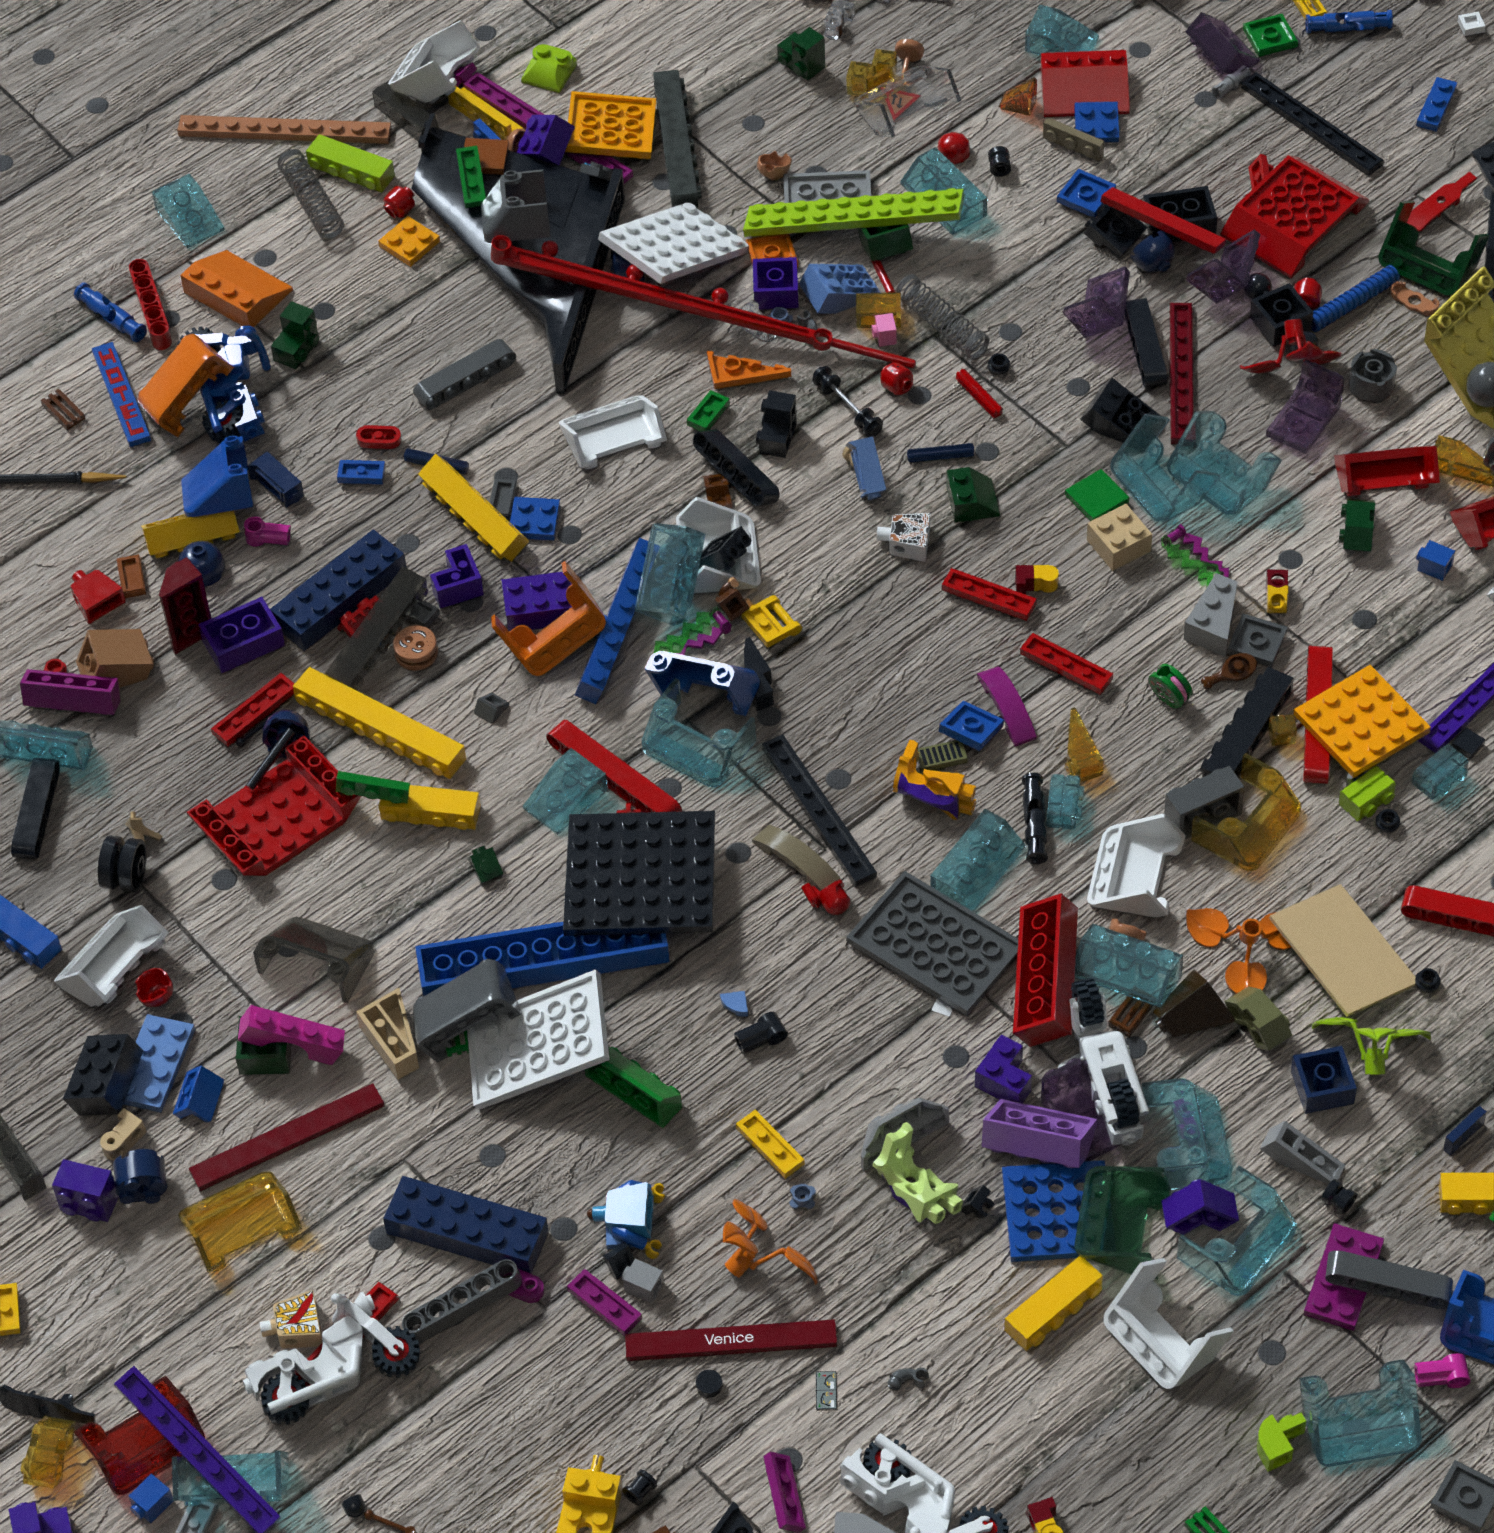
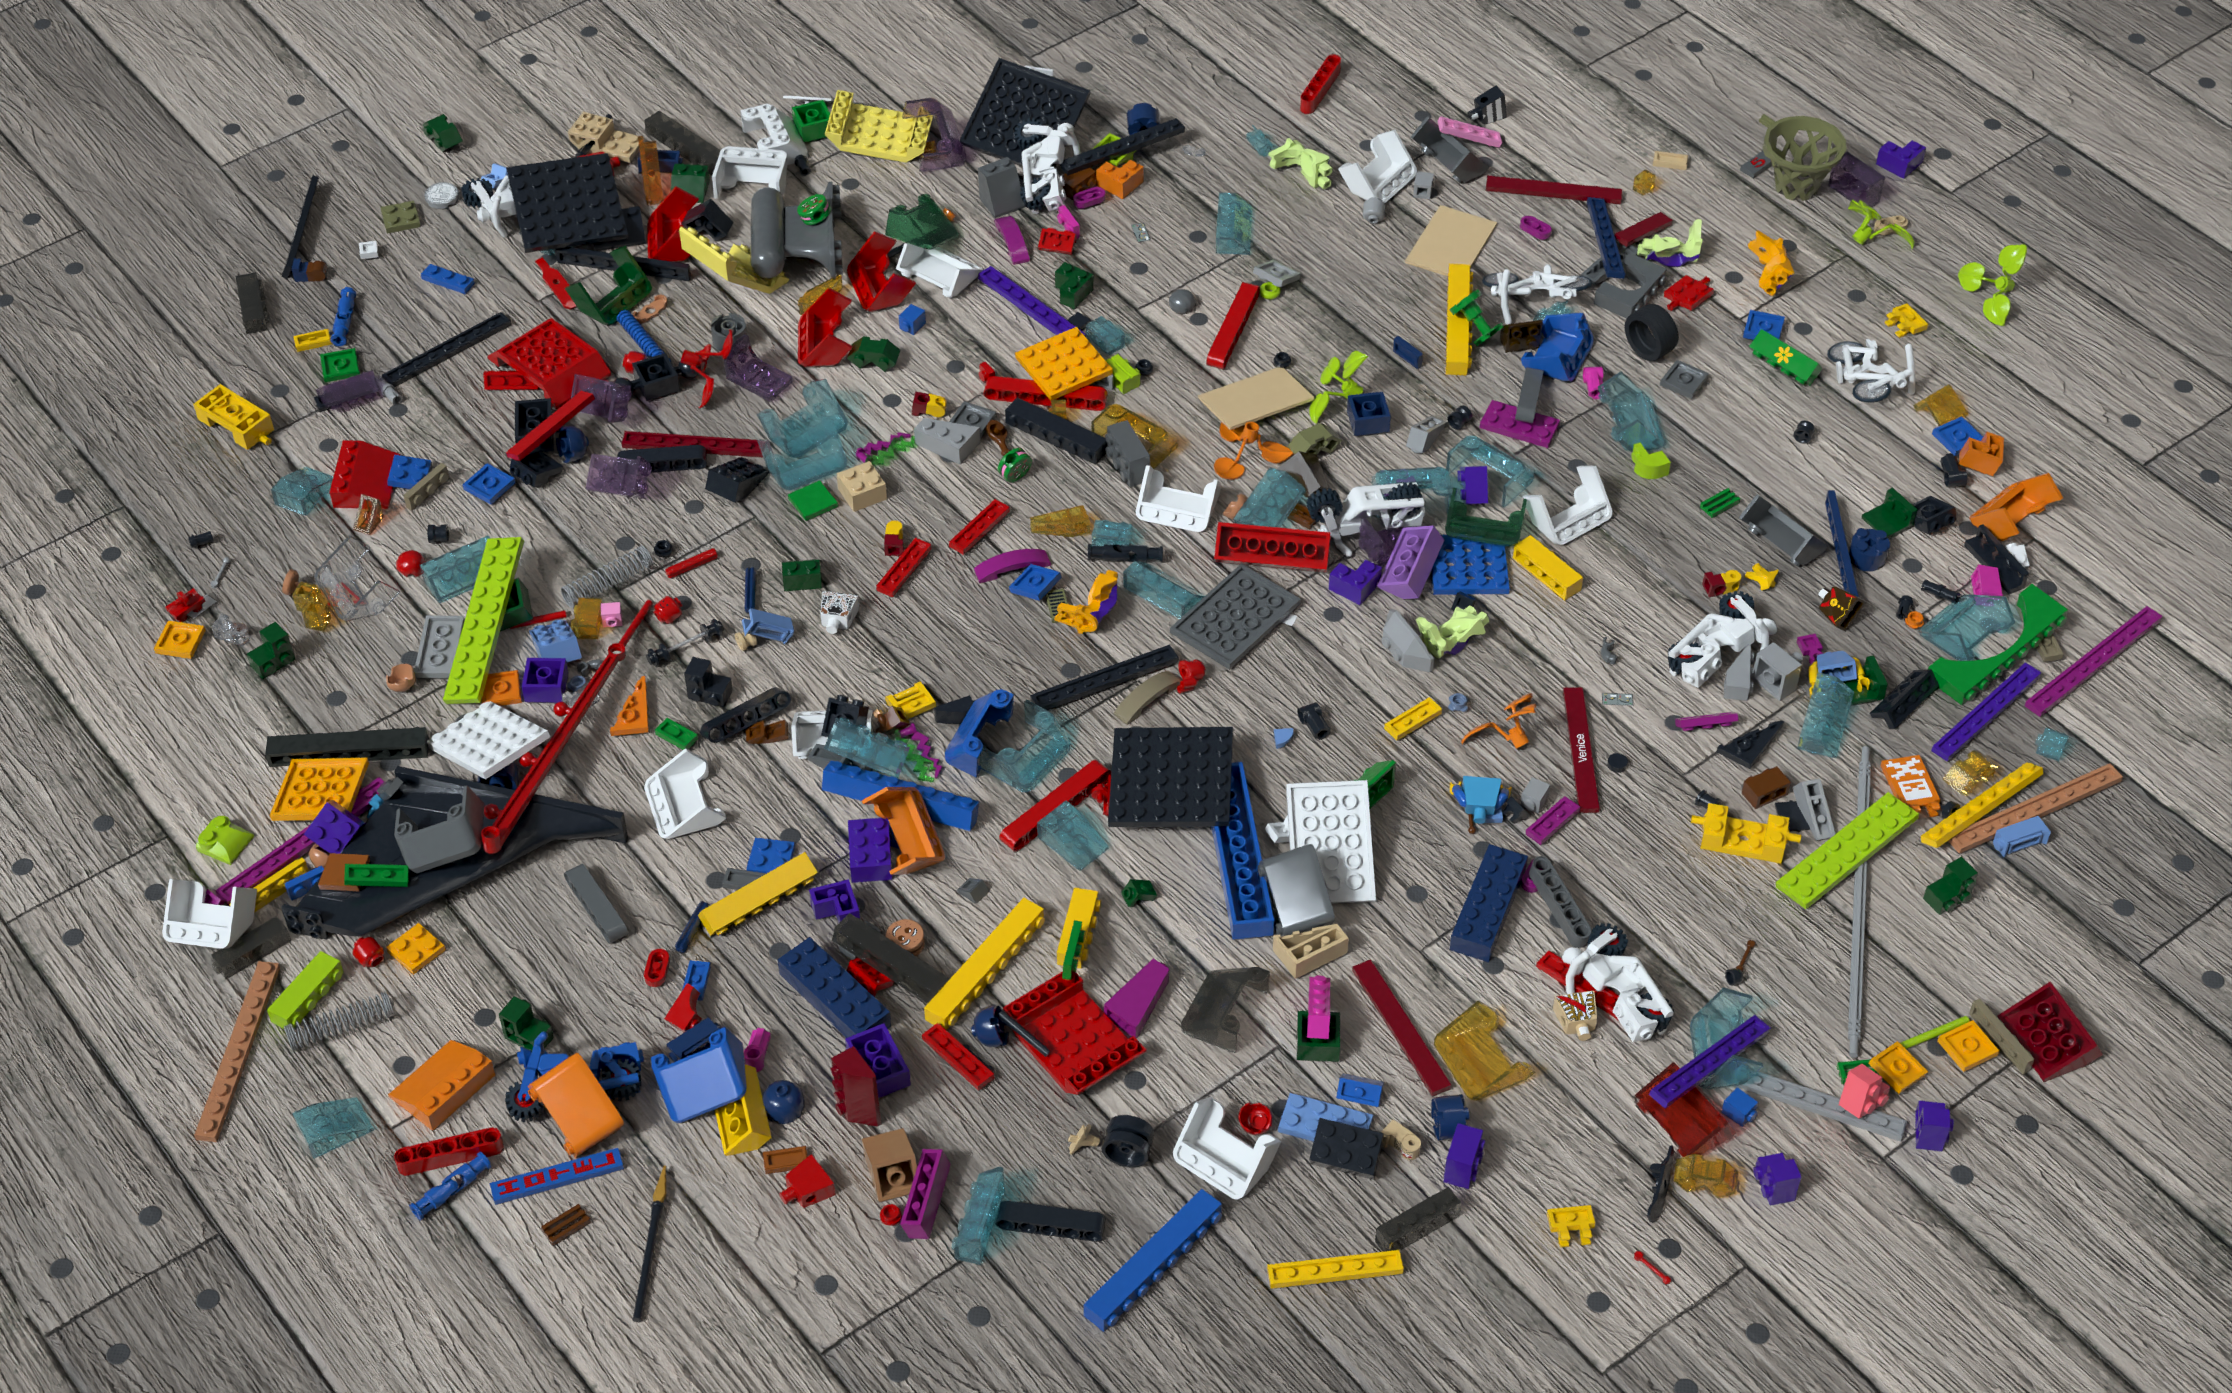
camera: 90 degrees left, 5 degrees down
(313, 463) = (683, 1012): none -> red arch
(327, 870) = (1137, 998): none -> magenta slope
(1344, 648) = (985, 371): none -> red plate

